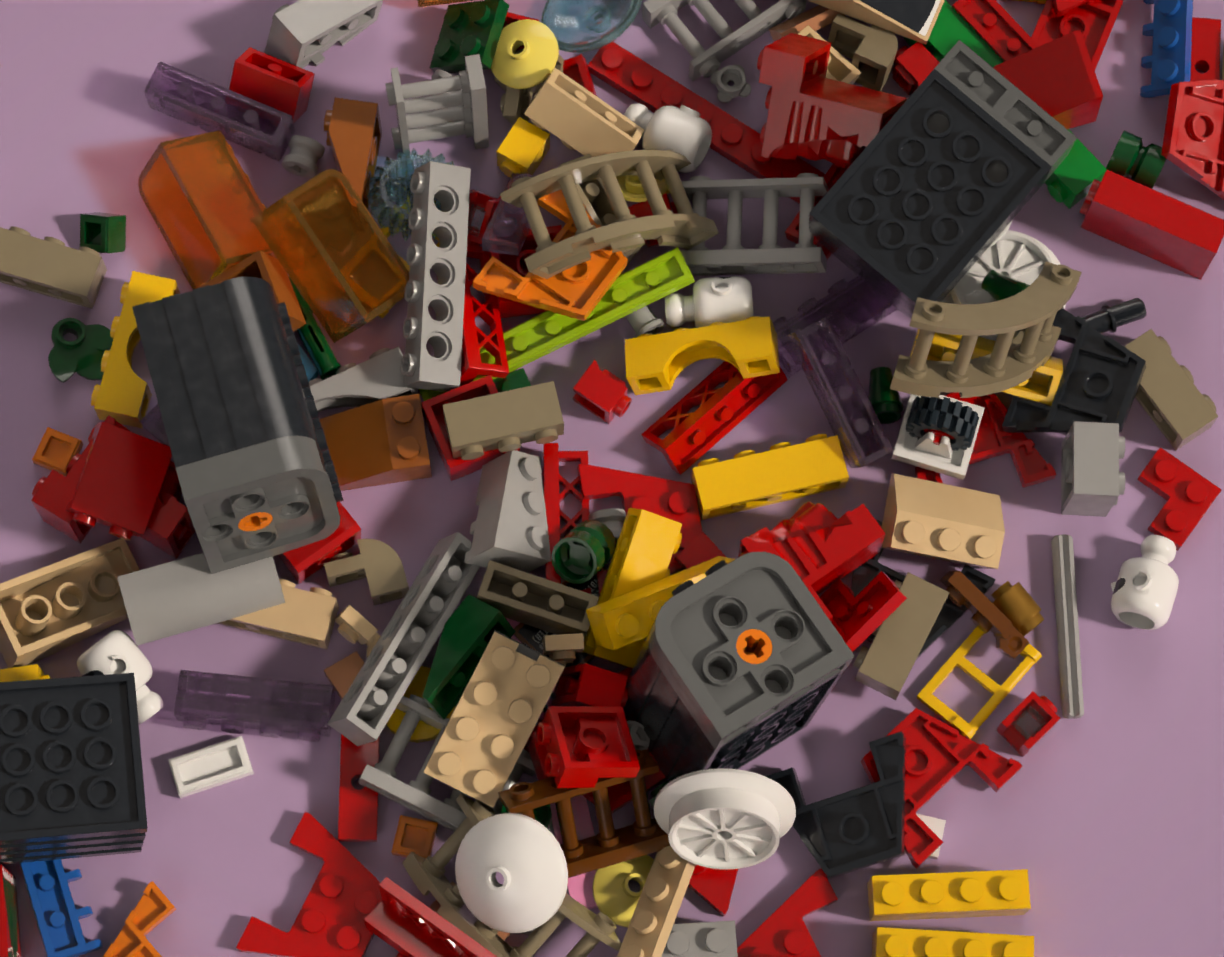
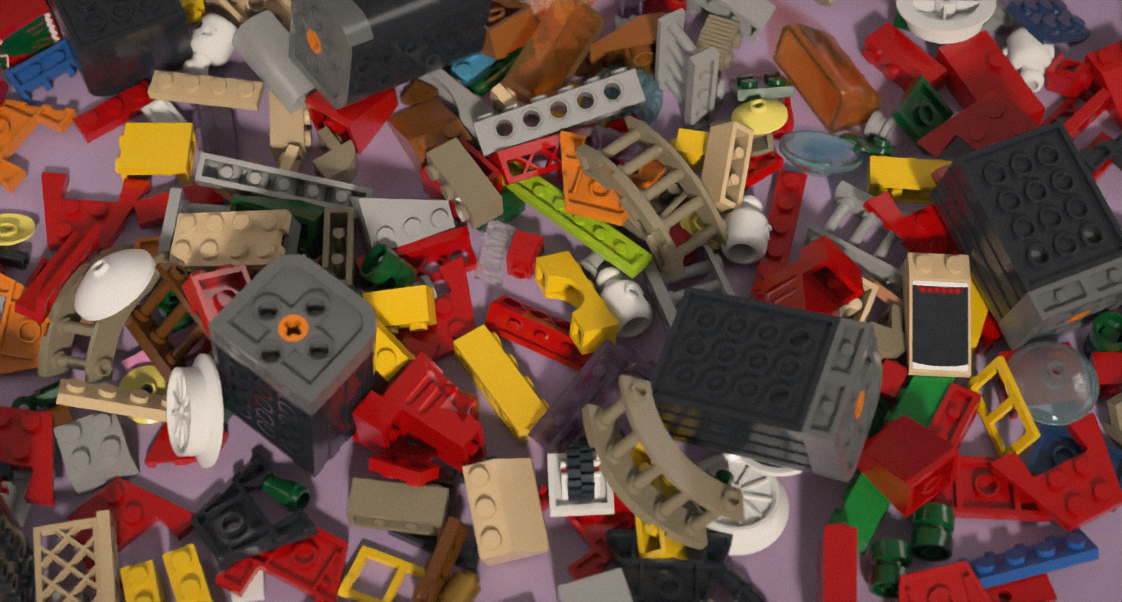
camera: 75 degrees right, 15 degrees down
(168, 833) = (113, 112): none -> red plate
(206, 697) = (206, 90): none -> tan plate
(267, 790) = (157, 150): none -> yellow panel
(370, 57) = (723, 35): none -> dark tan brick
(373, 335) = (502, 97): none -> tan plate
(579, 411) = (498, 235): none -> clear slope
(825, 759) = (288, 493): none -> dark green cone
(1117, 104) = (933, 532): none -> dark green wheel

